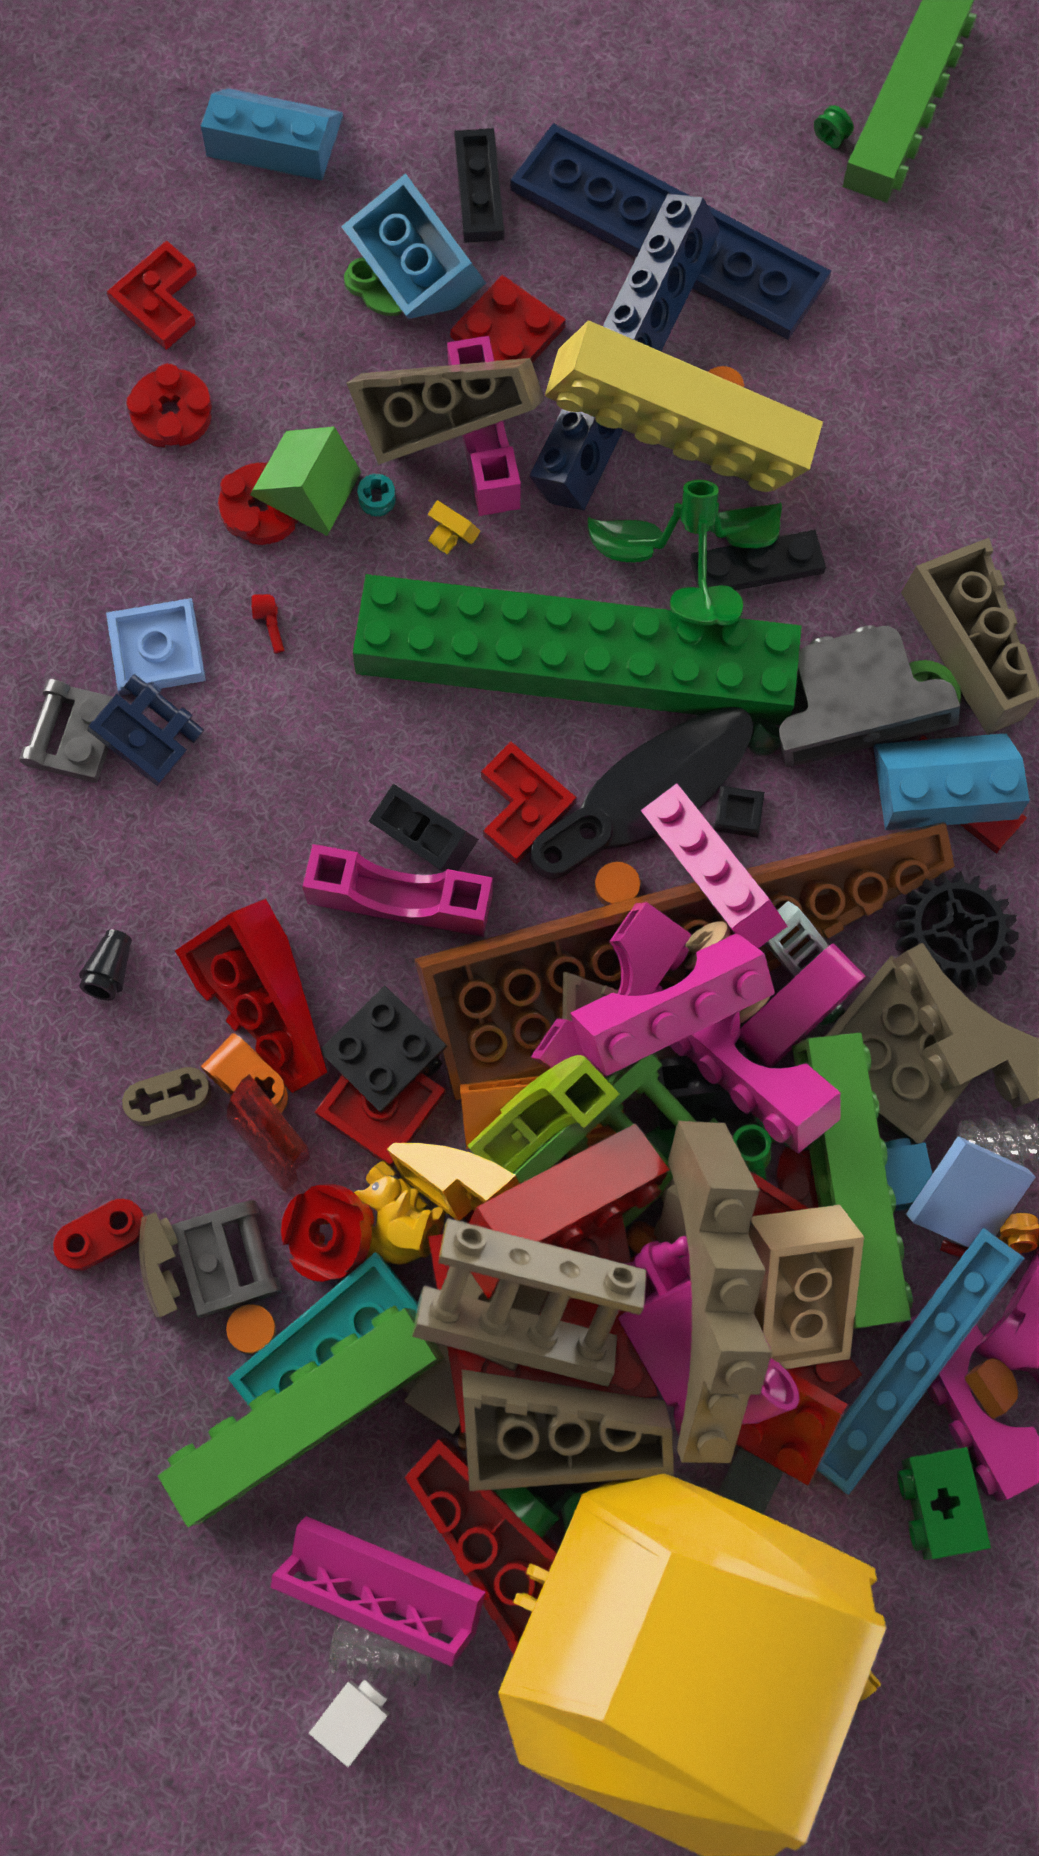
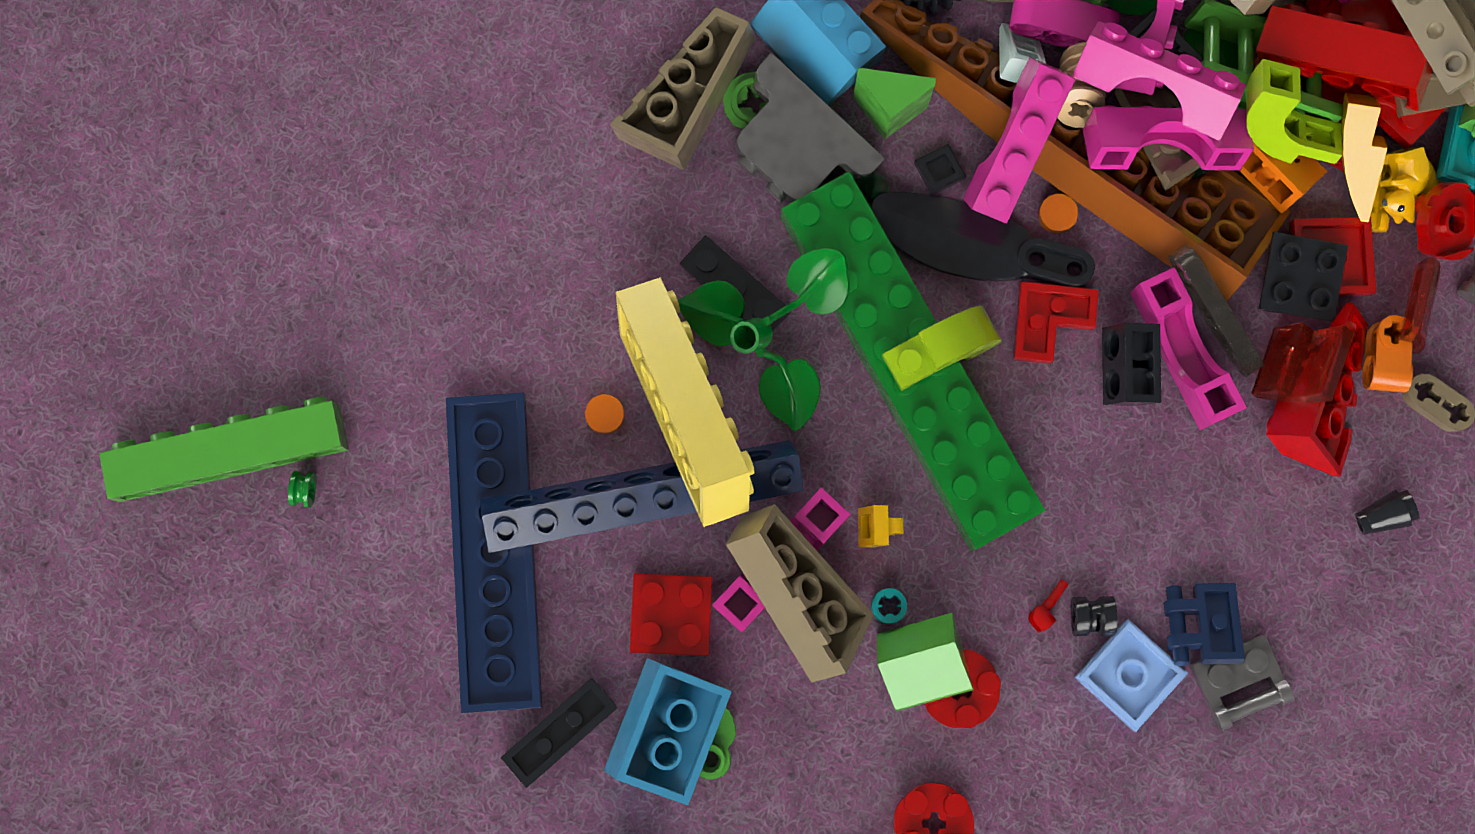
camera: 125 degrees left, 10 degrees up
(230, 645) = (1093, 616): none -> black wheel
(302, 979) = (1303, 363): none -> clear red slope
(414, 935) = (1215, 310): none -> clear smoke beam
(565, 675) = (941, 345): none -> lime arch
(837, 790) = (891, 97): none -> bright green slope

